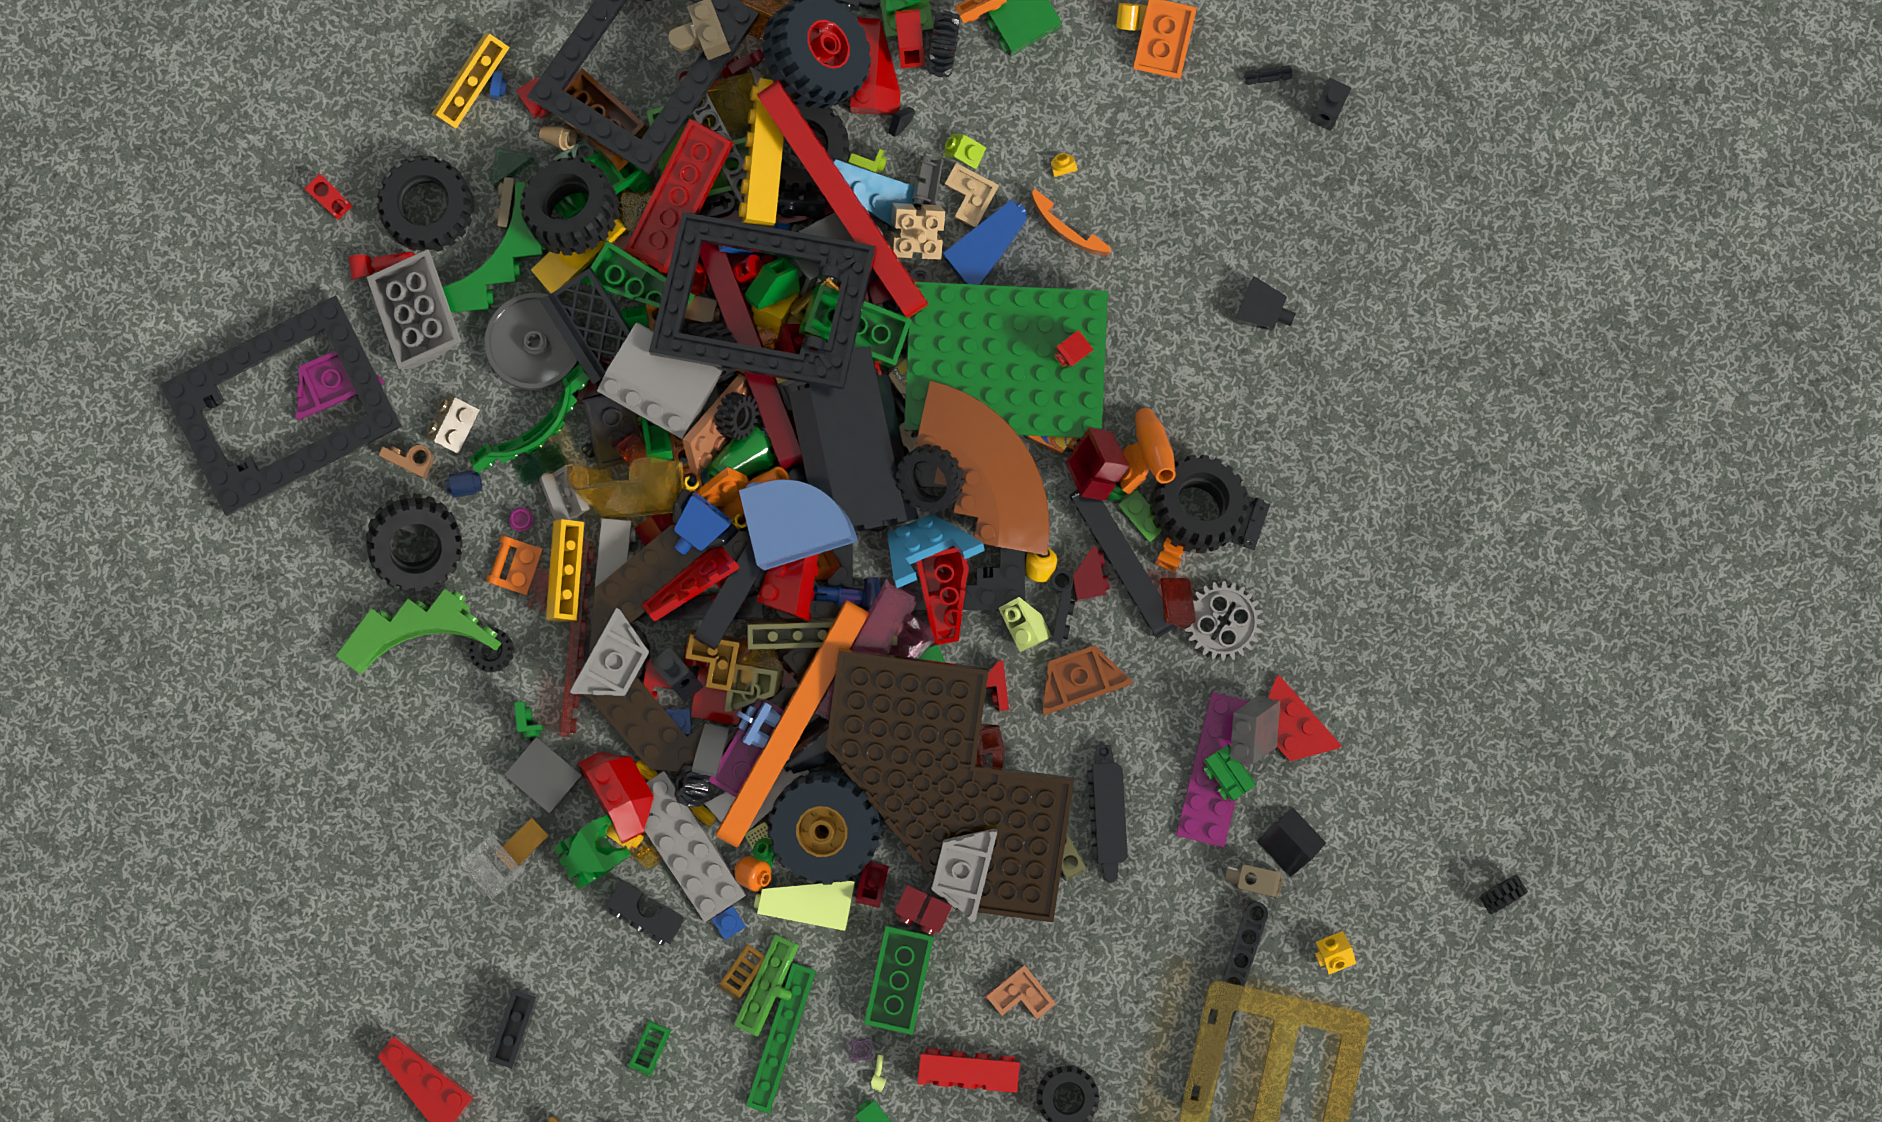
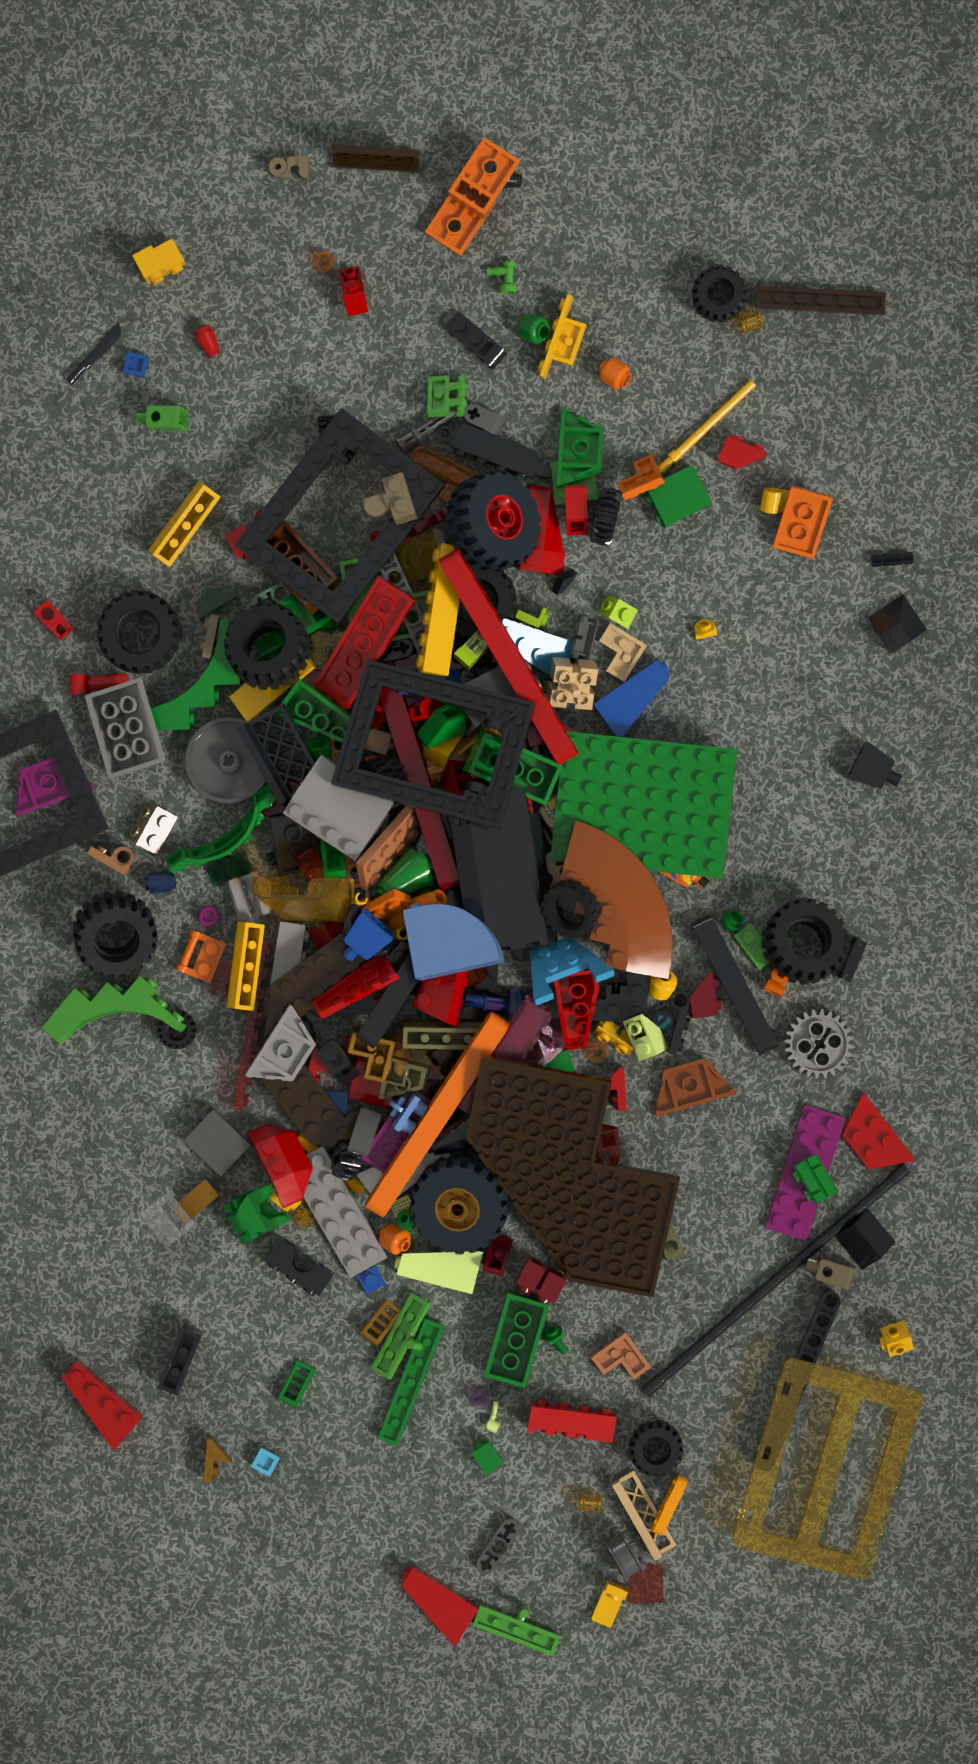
camera: 10 degrees right, 5 degrees up
(498, 86) = (208, 529): blue plate -> none
(523, 717) = (203, 1091): green bracket -> none
(559, 136) = (260, 578): tan cone -> none
(736, 416) = (404, 842): black tyre -> none
(801, 197) = (471, 650): none -> lime leg
(942, 976) = (553, 1335): none -> green plate
(964, 869) = (579, 1249): light grey wing -> none
(972, 654) = (605, 1052): none -> clear orange plate
(981, 624) = (607, 1033): none -> yellow hinge
(1045, 605) = (663, 1020): none -> black tile
(1066, 1018) = (893, 1179): none -> black piece
(1072, 350) = (702, 802): red slope -> none
(1092, 245) = (726, 703): orange slope -> none
(1097, 464) = (717, 901): dark red piece -> none
(1108, 812) = (708, 1205): black hinge -> none
(1149, 453) = (763, 895): orange plate -> none
(1178, 601) = (780, 1024): clear red slope -> none
(1255, 729) = (840, 1143): dark grey brick -> none
(1278, 146) = (897, 624): none -> black slope
(1330, 104) = (945, 590): black torso -> none

